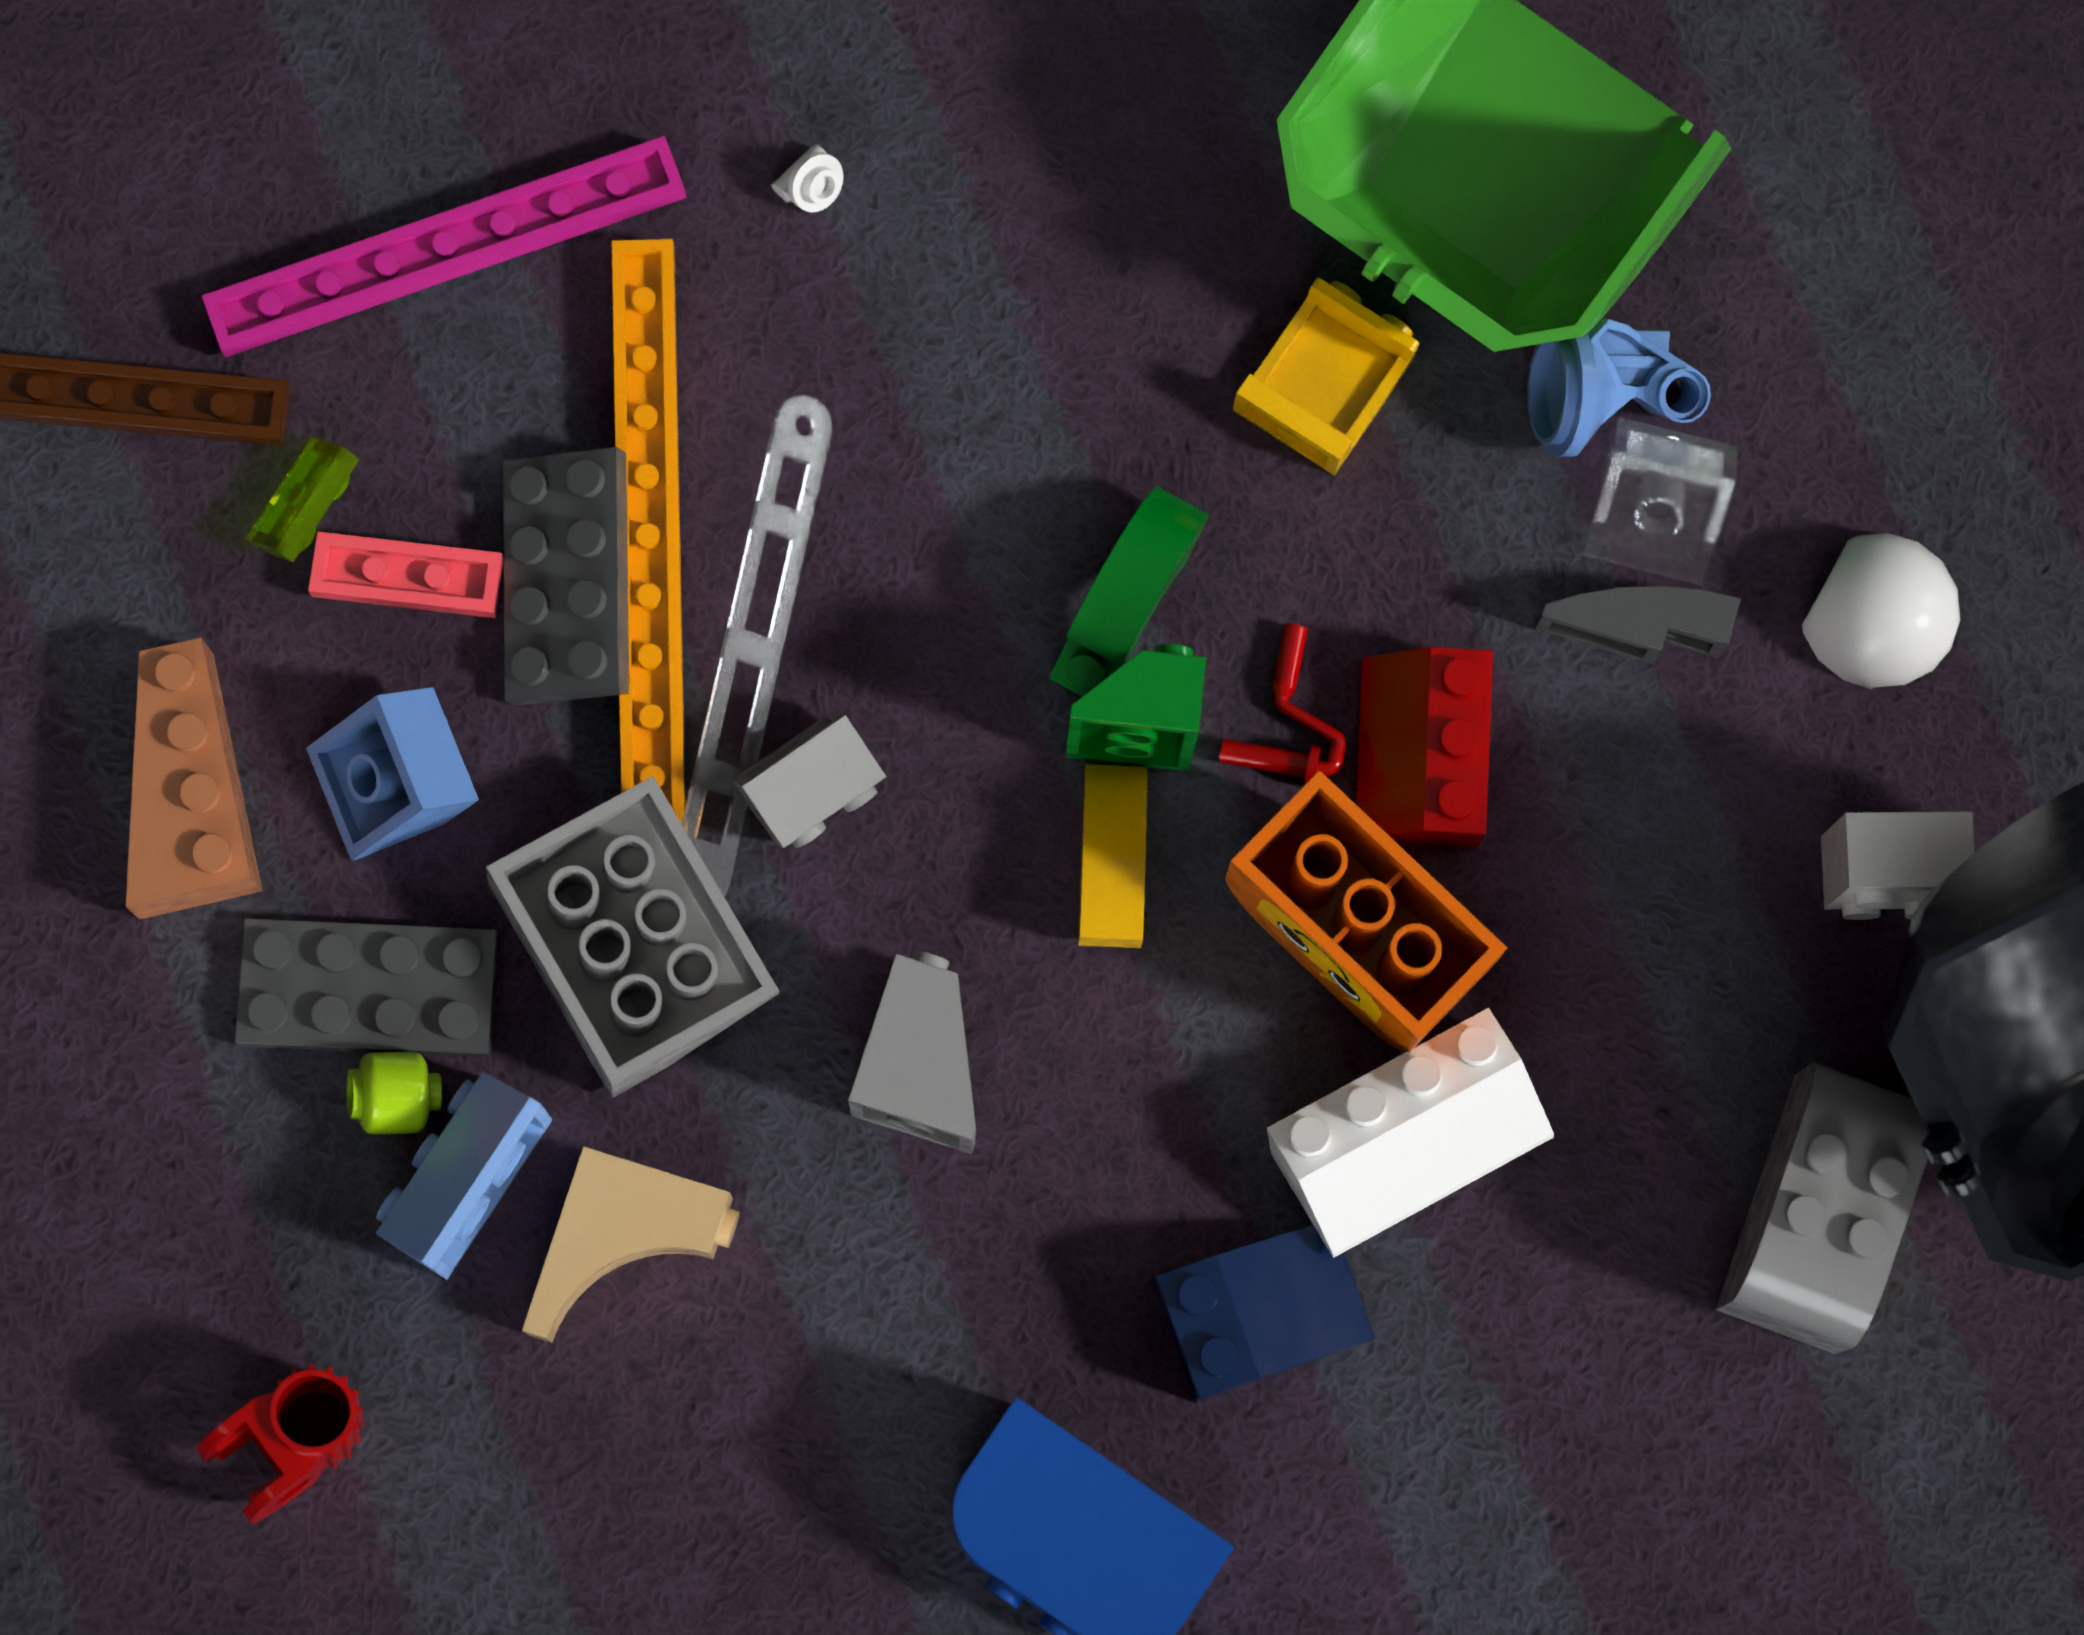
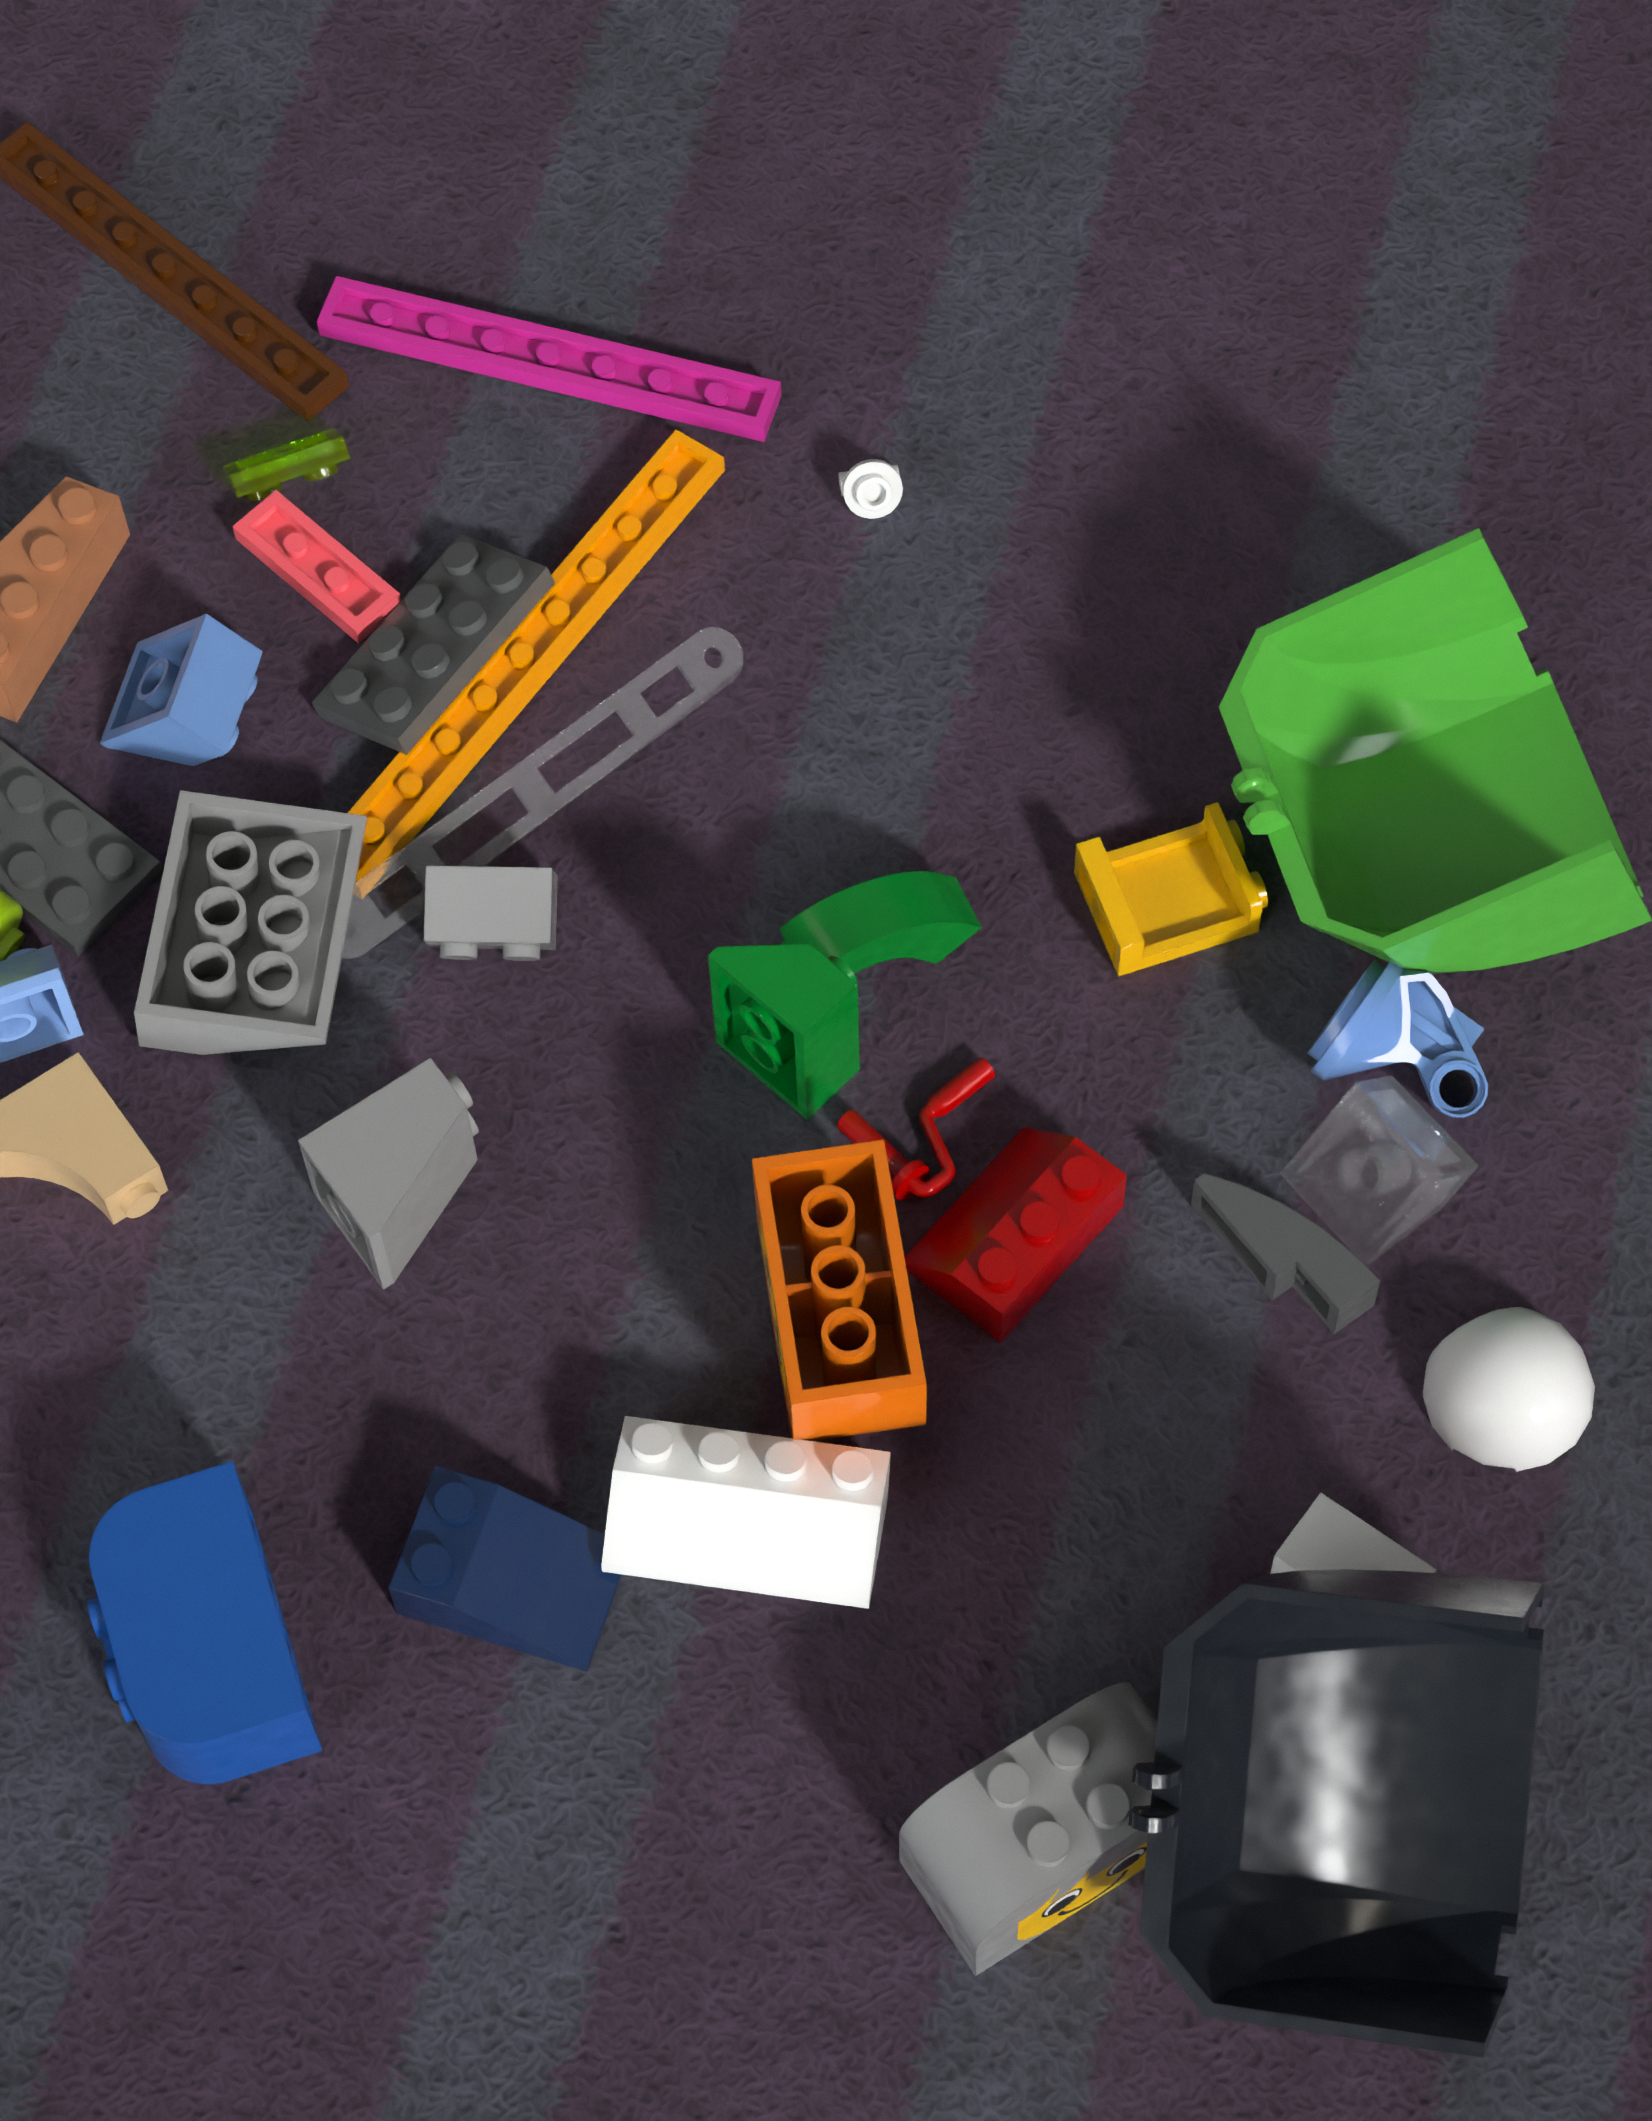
camera: 45 degrees right, 15 degrees down
(1113, 856) = (682, 1135): yellow slope -> none

